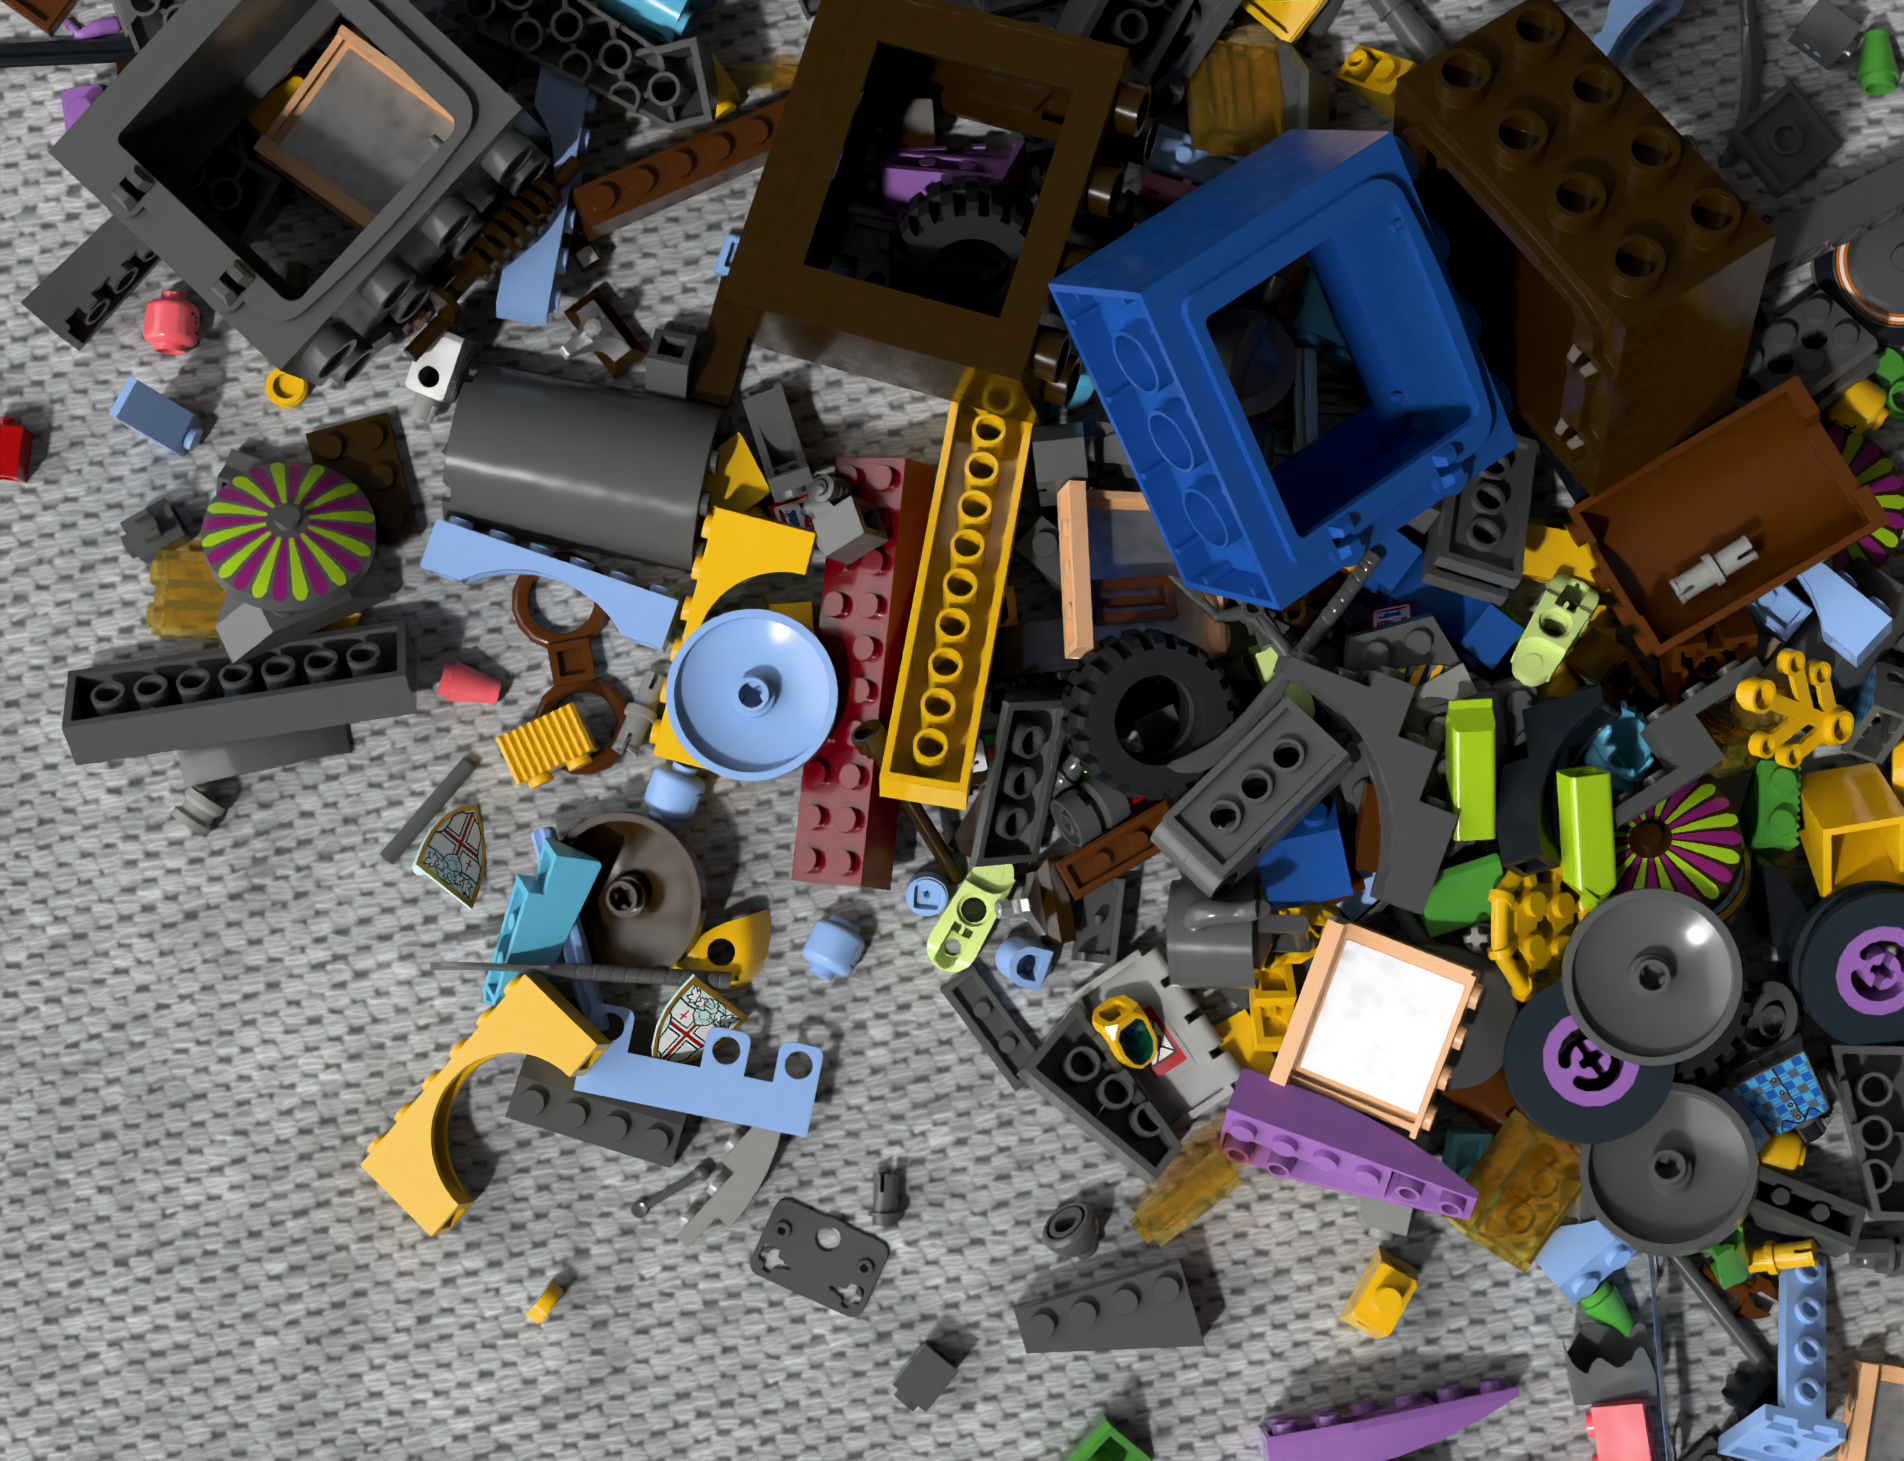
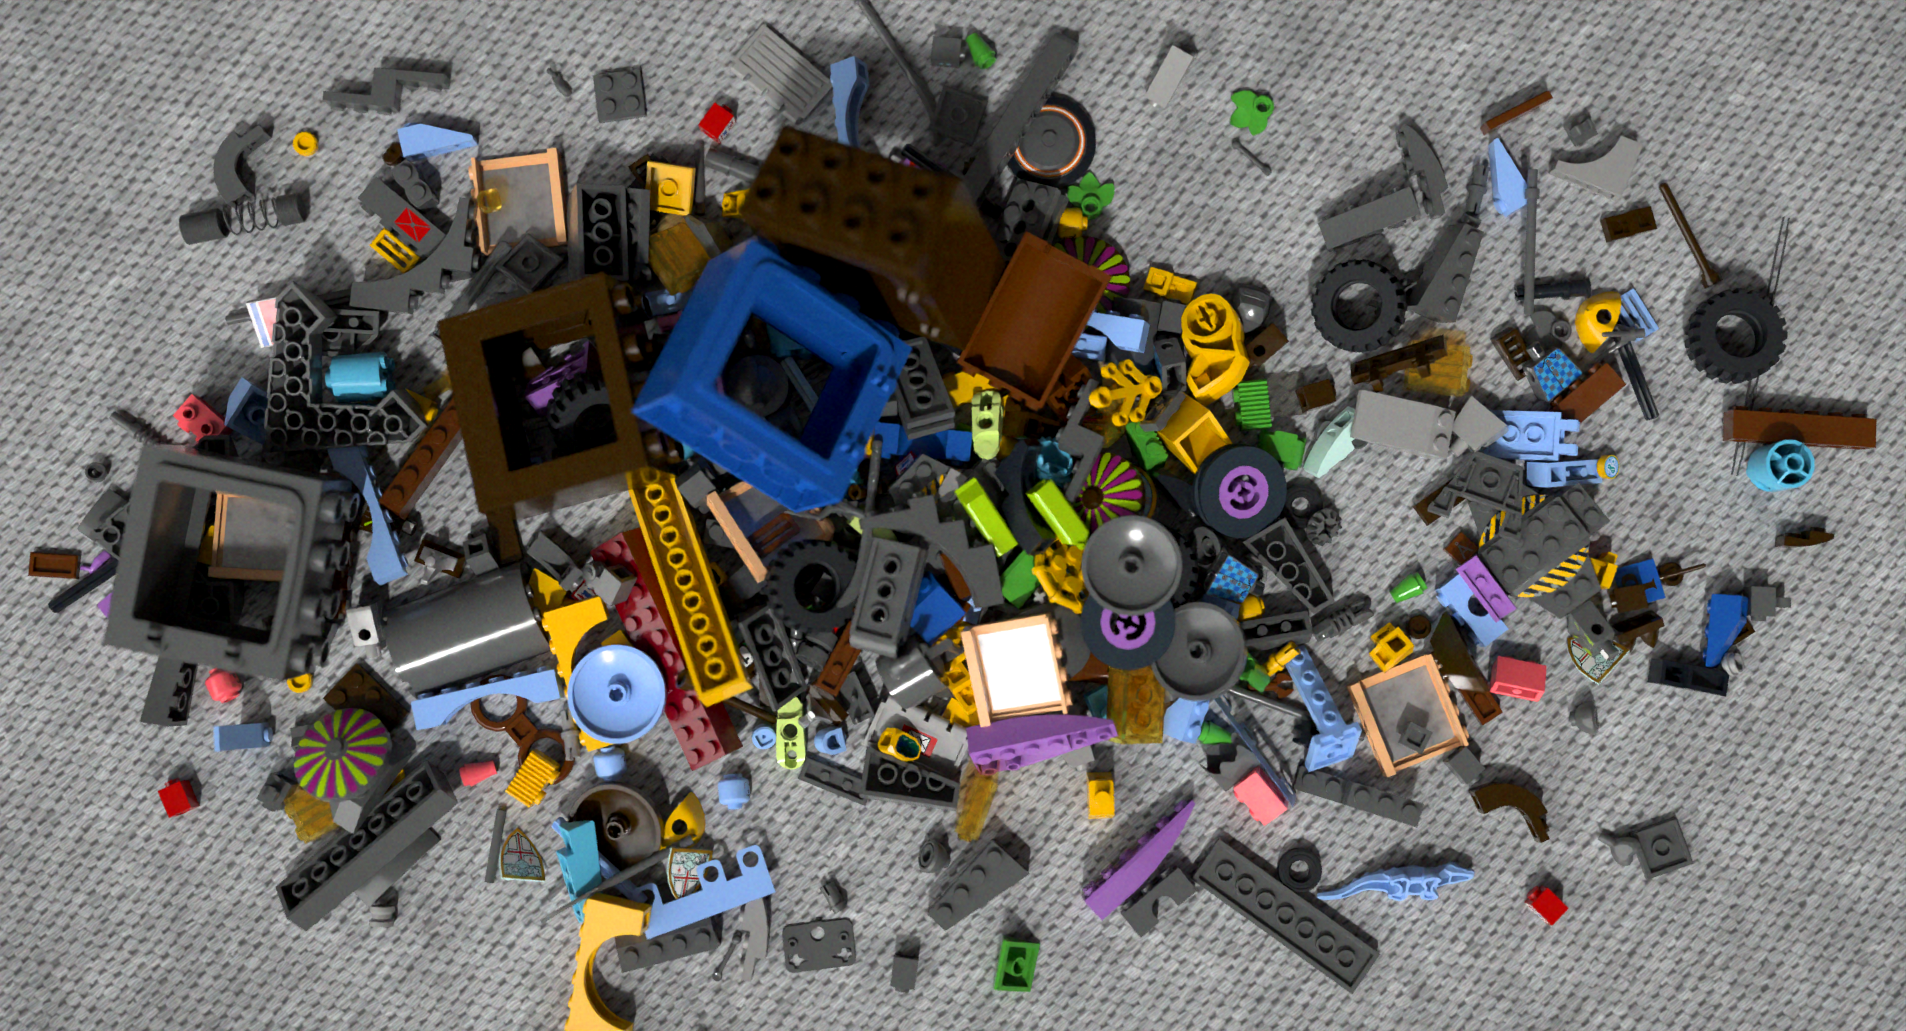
camera: 25 degrees left, 0 degrees up
(501, 240) = (357, 548): dark brown piece -> none
(1713, 569) = (1045, 348): light grey pin -> none
(1830, 770) = (1161, 409): none -> dark grey plate

